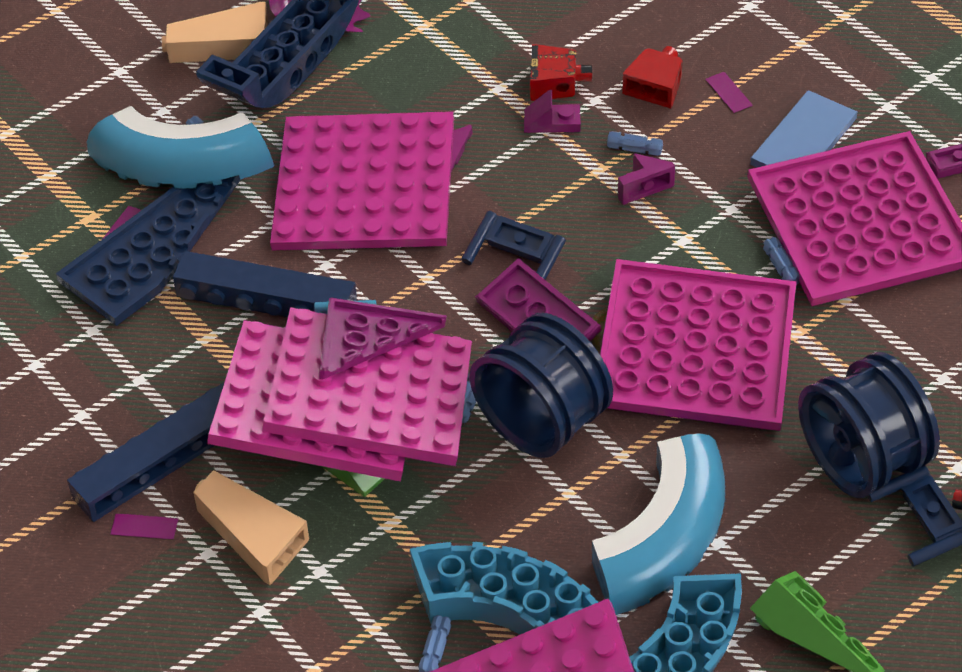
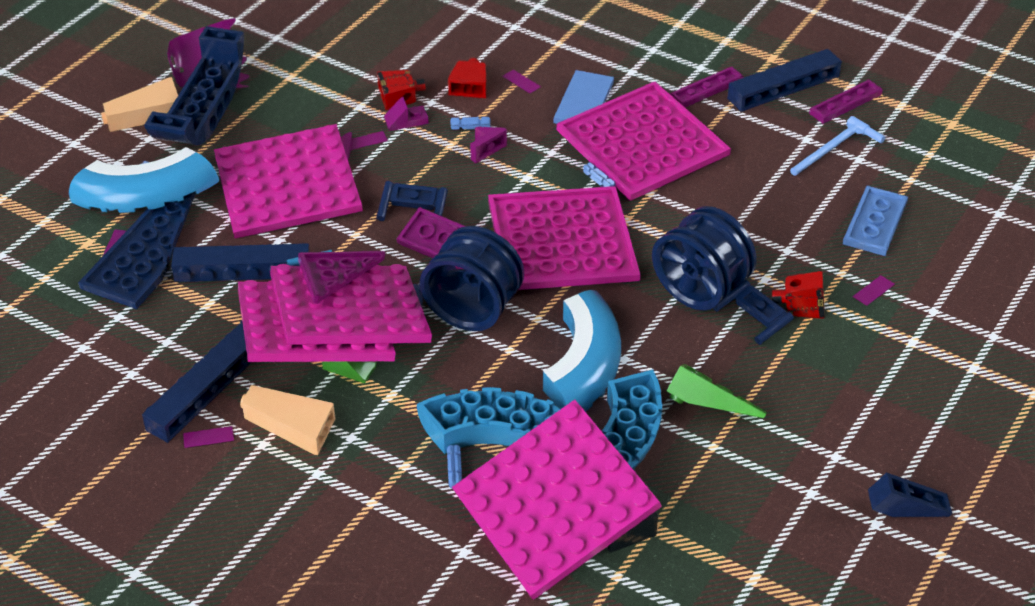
camera: 20 degrees left, 5 degrees down
(491, 141) = (367, 140): none -> magenta sticker

